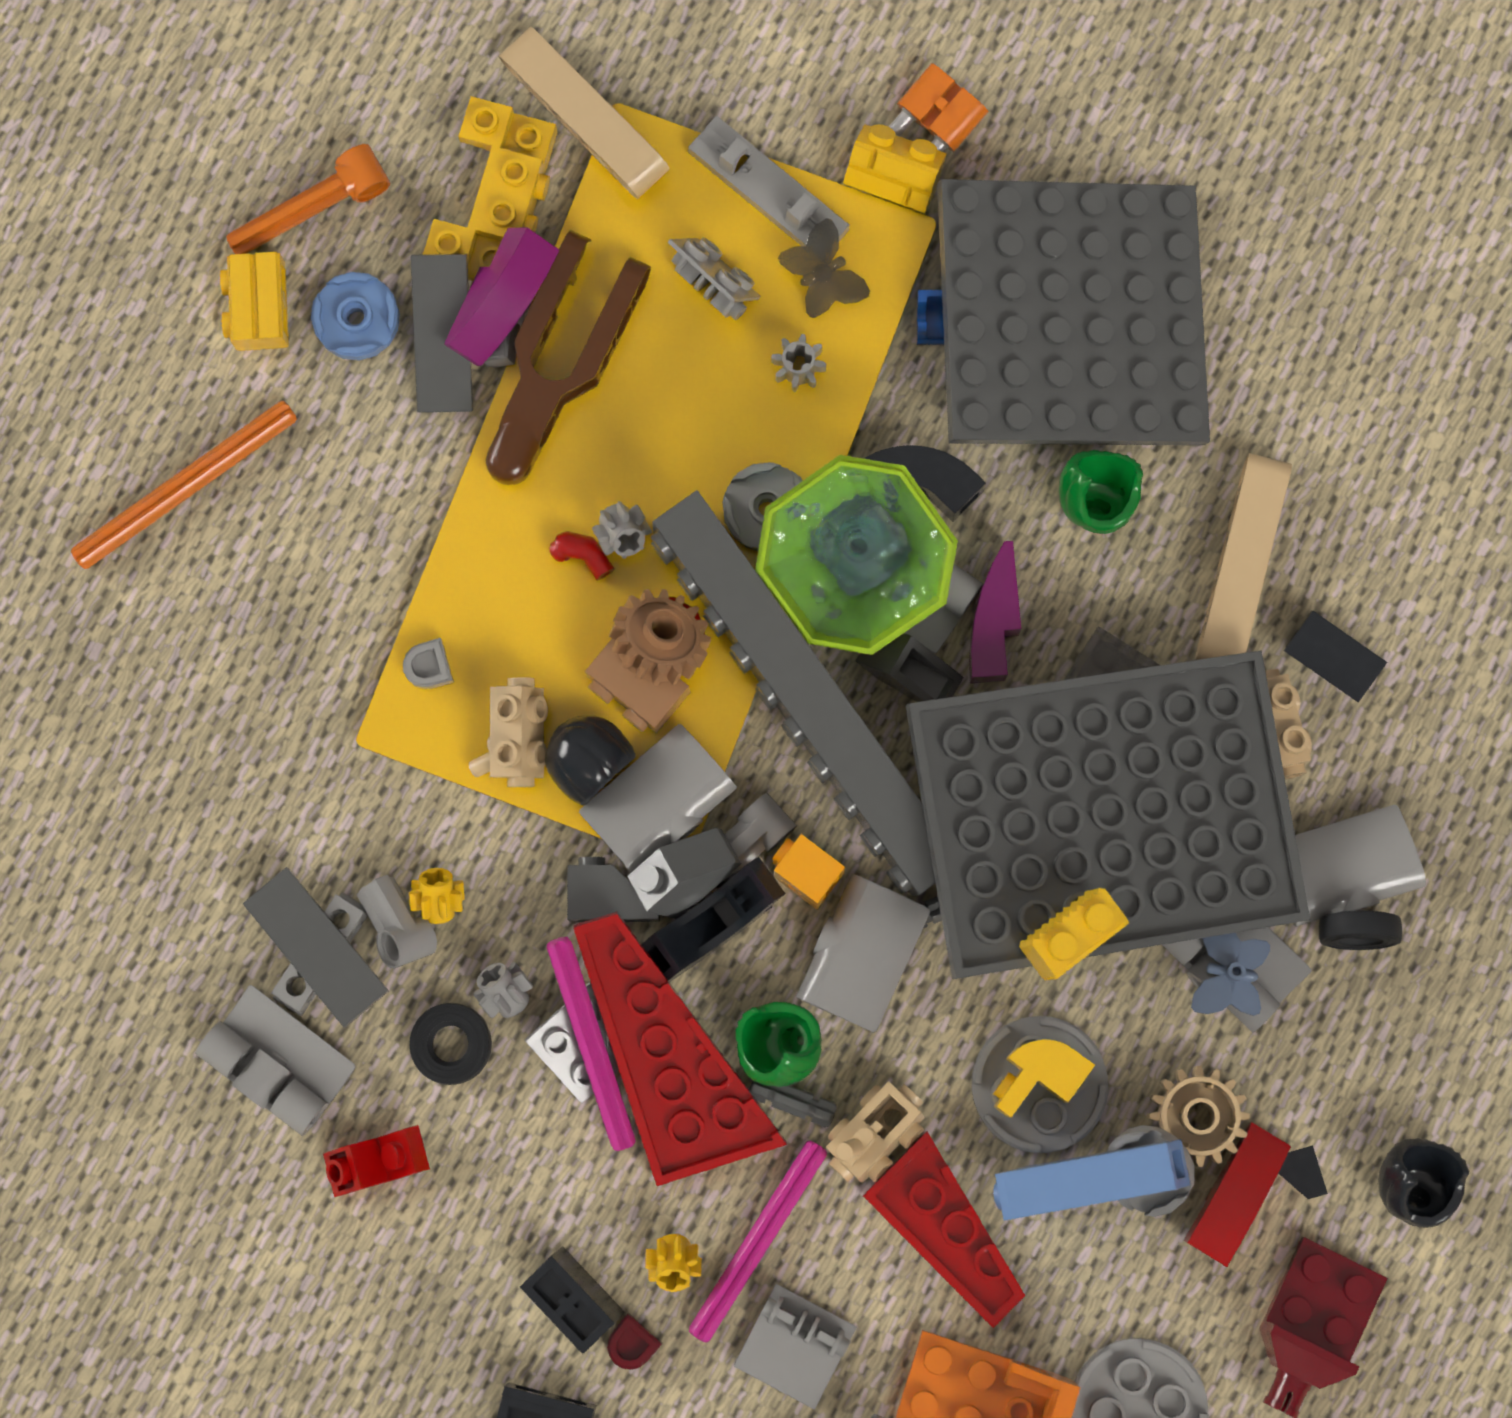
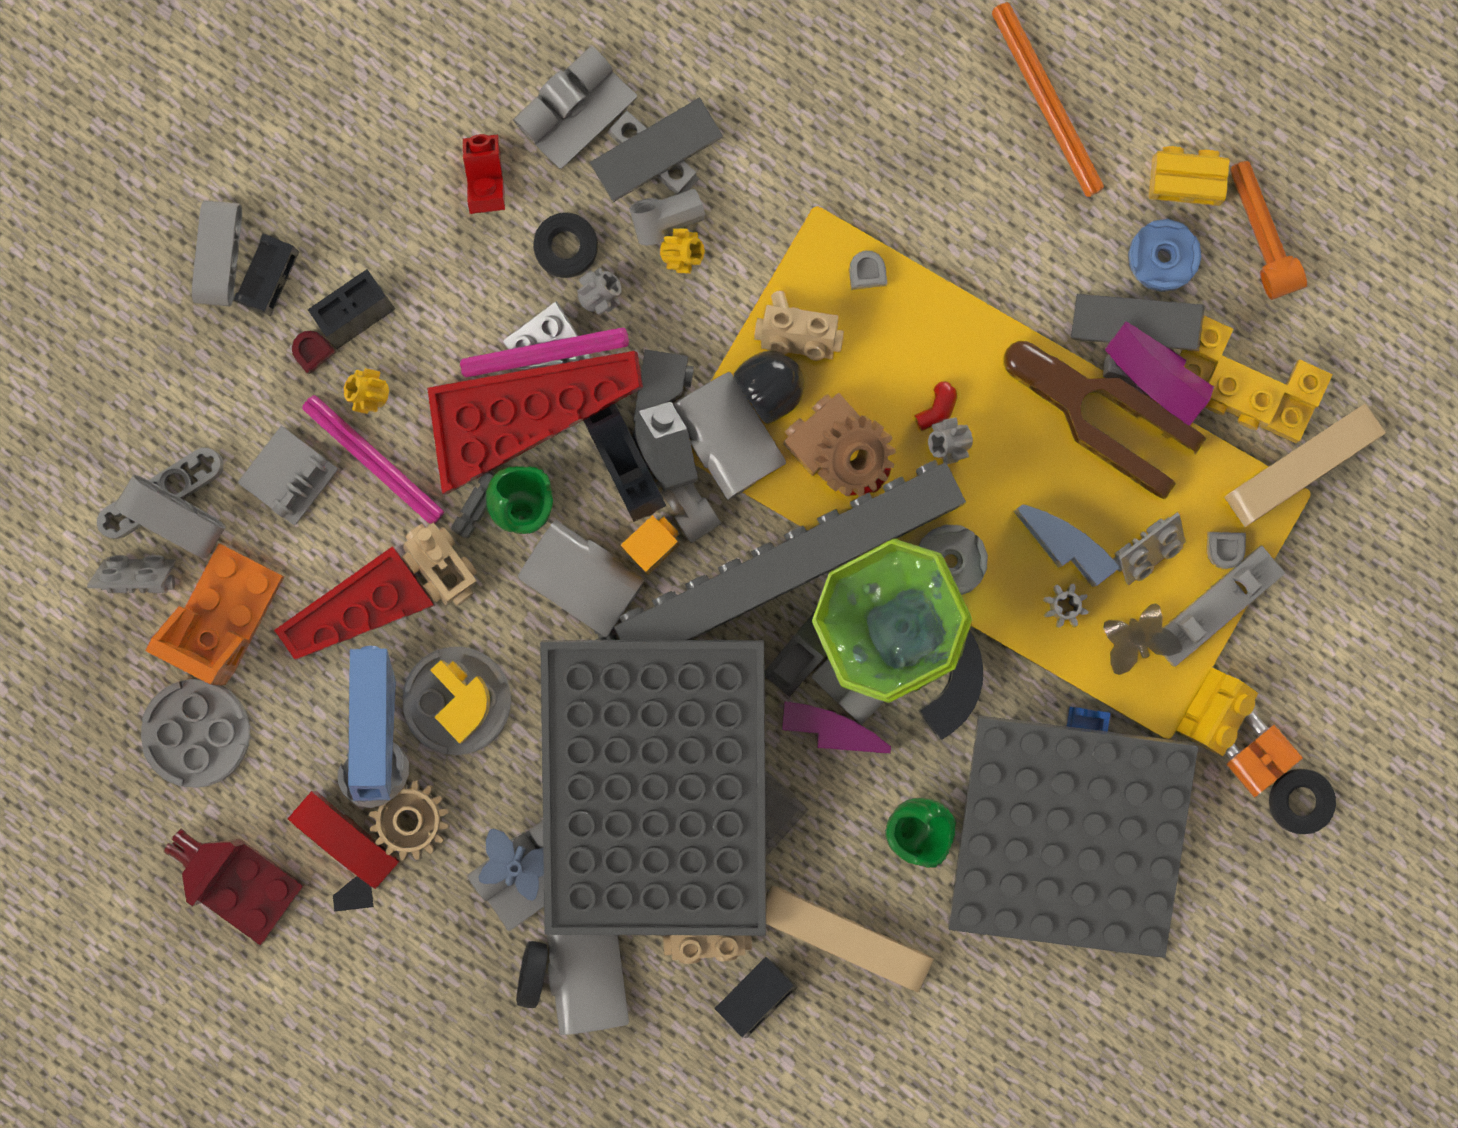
camera: 95 degrees right, 5 degrees up
(698, 189) = (1226, 549): none -> light grey tile
(725, 371) = (1067, 543): none -> sand blue slope
(987, 32) = (1323, 809): none -> black tyre
(1073, 933) = (558, 740): yellow brick -> none
(1424, 1170) = (335, 993): black piece -> none

